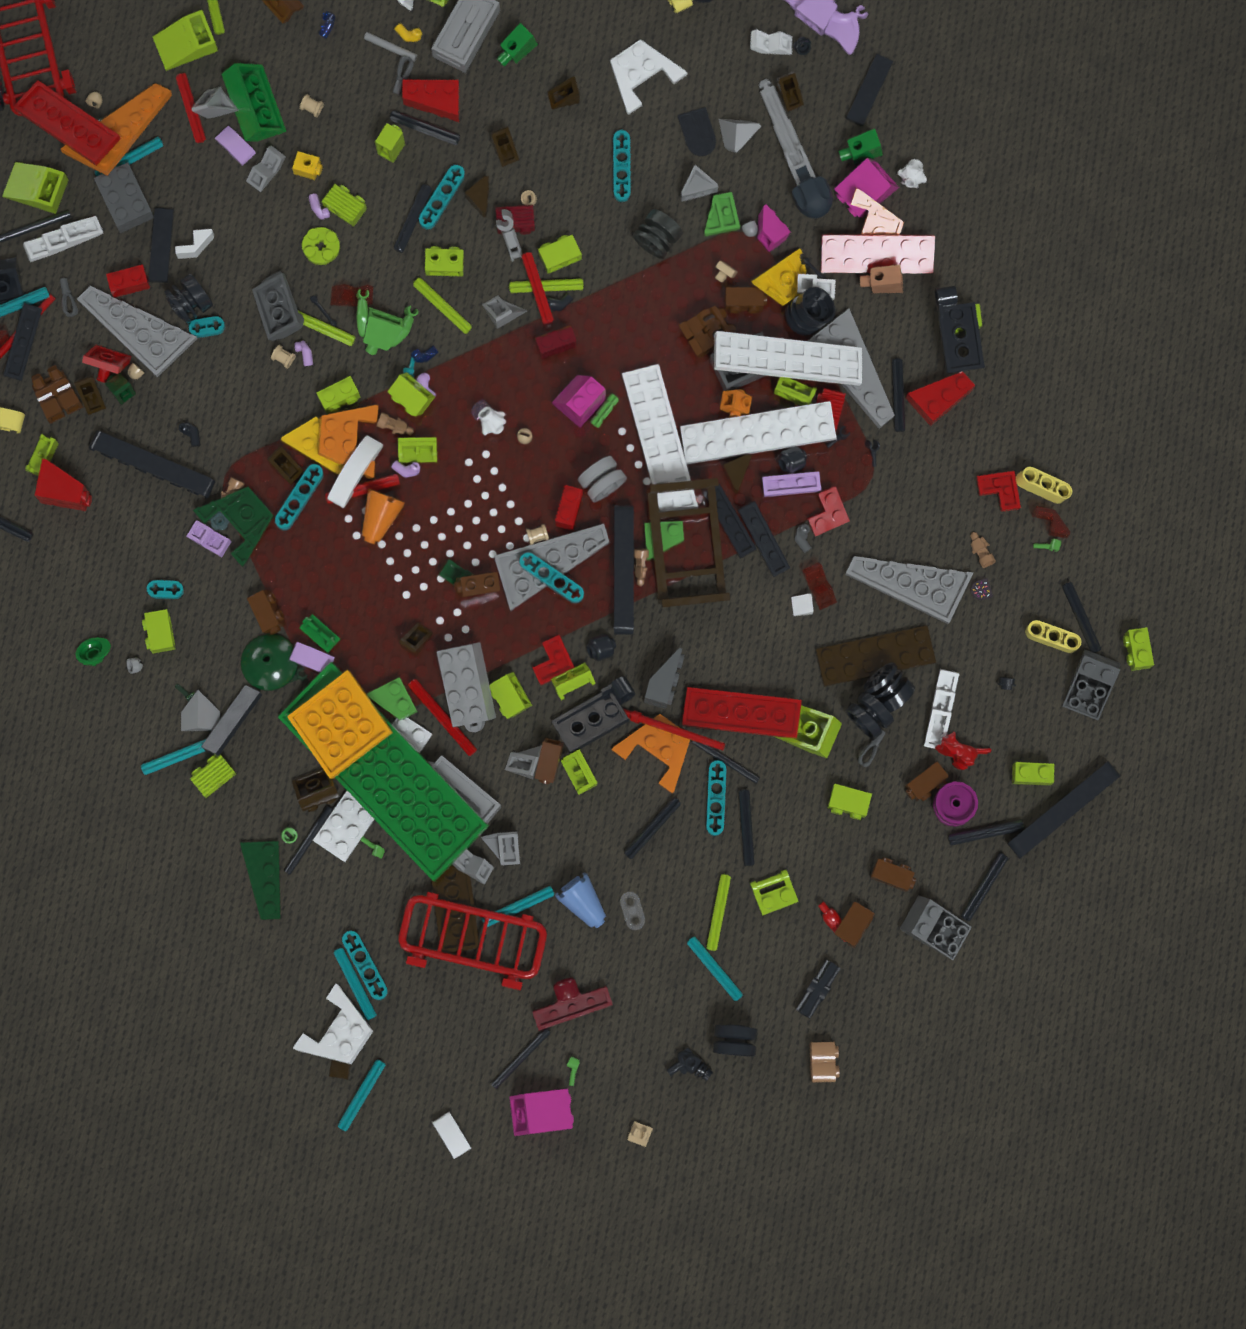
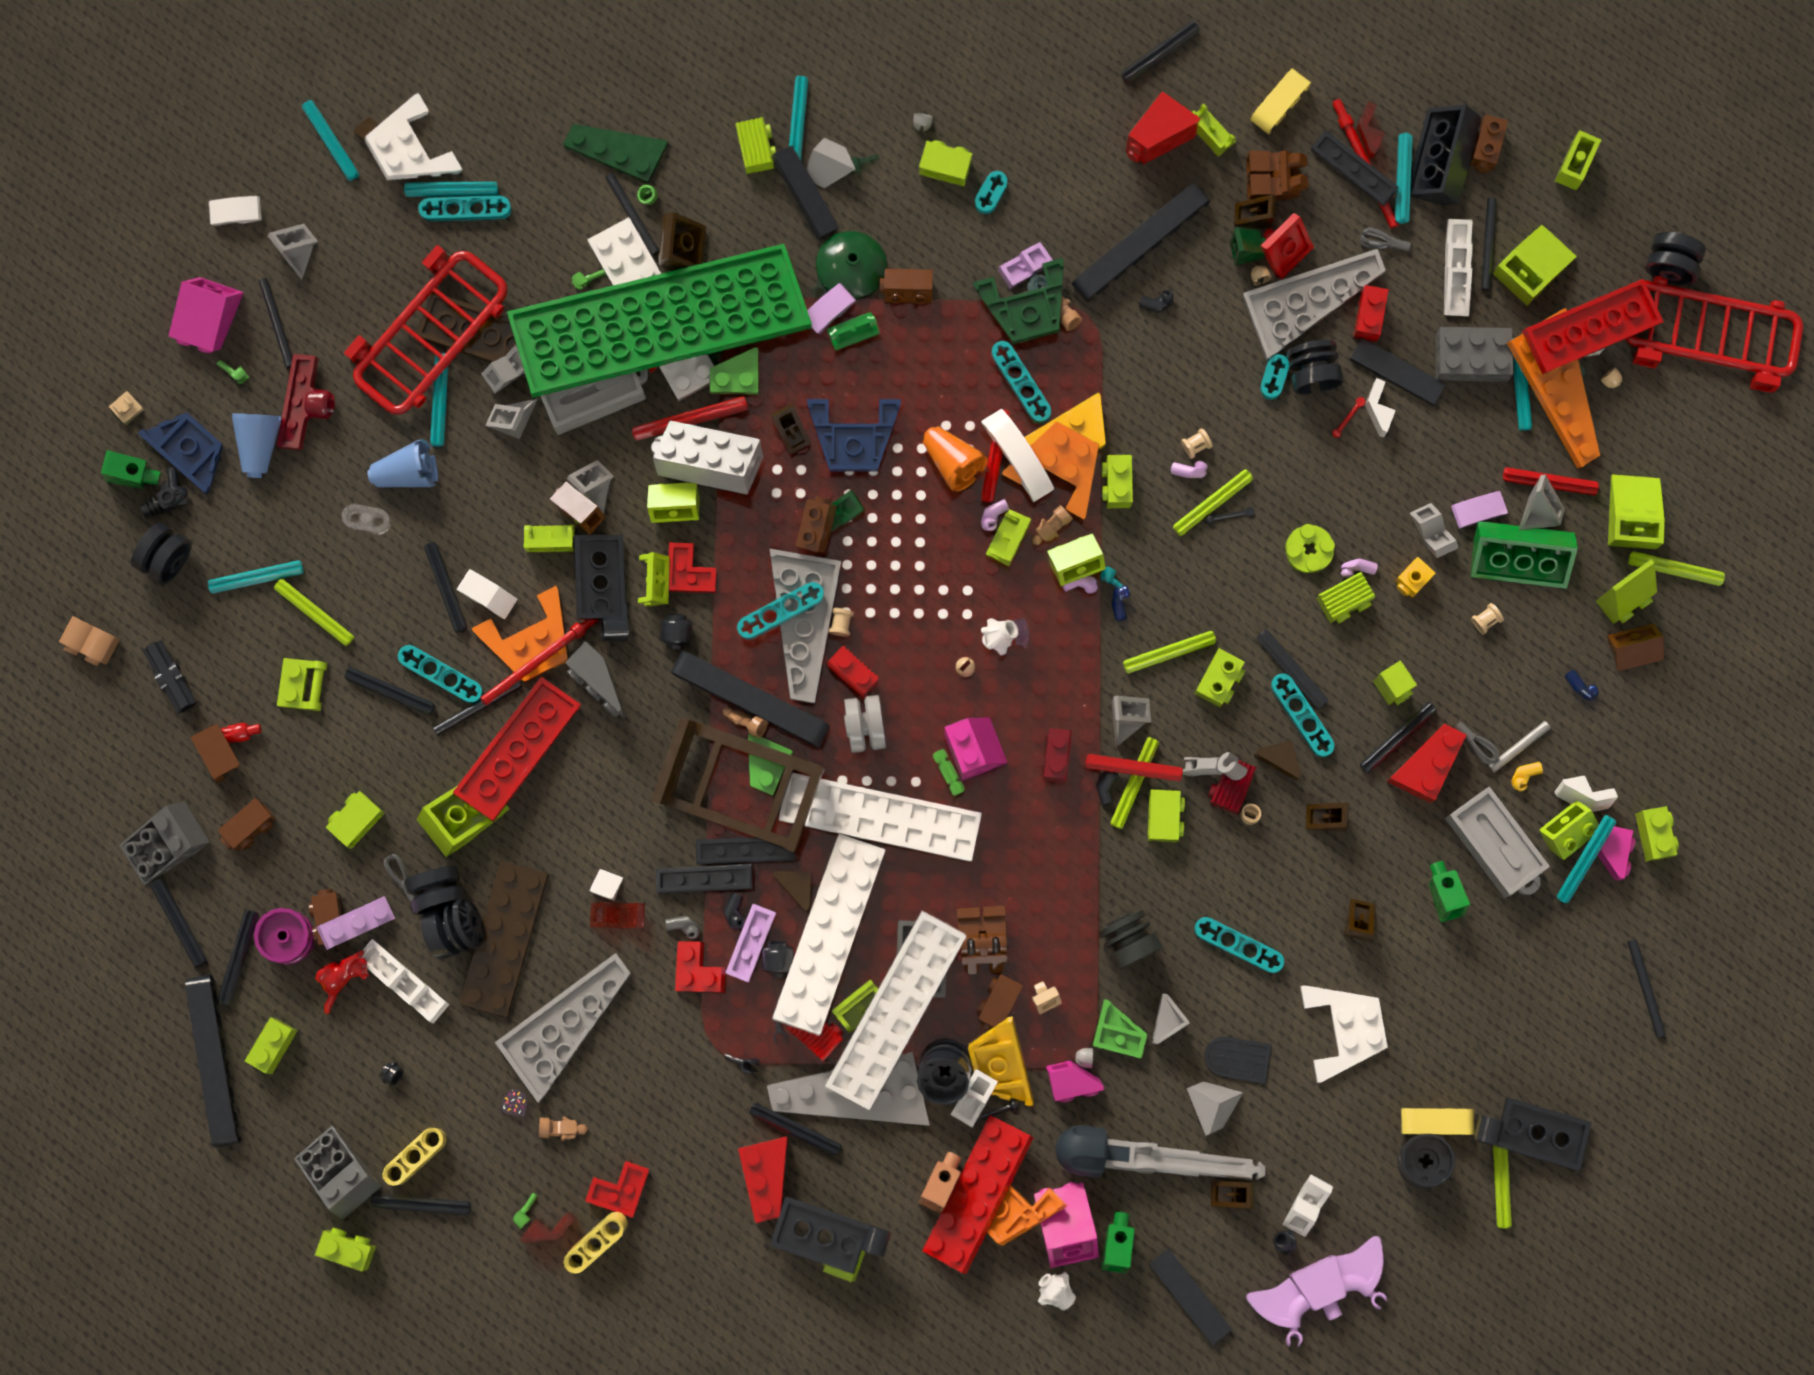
camera: 125 degrees right, 0 degrees up
(93, 651) = (959, 82): green piece -> none
(196, 261) = (1360, 401): none -> red hinge
(247, 19) = (1630, 593): none -> lime slope
(277, 307) = (1257, 462): dark grey slope -> none
(284, 465) = (1064, 382): dark brown slope -> none
(340, 724) = (734, 297): light orange plate -> none
(346, 295) = (1231, 554): clear red slope -> none
(380, 328) = (1171, 565): bright green torso -> none
(404, 589) = (854, 445): none -> dark blue wing
(456, 1074) = (295, 246): none -> light grey slope
(616, 1021) = (255, 441): none -> medium blue cone
(642, 794) = (487, 594): none -> white slope
(647, 1070) = (187, 448): none -> dark blue wing
(688, 1108) = (115, 471): none -> green torso
(736, 402) = (876, 931): orange brick -> none
(777, 508) = (732, 913): none -> black arm
(920, 759) = (355, 922): none -> lavender plate

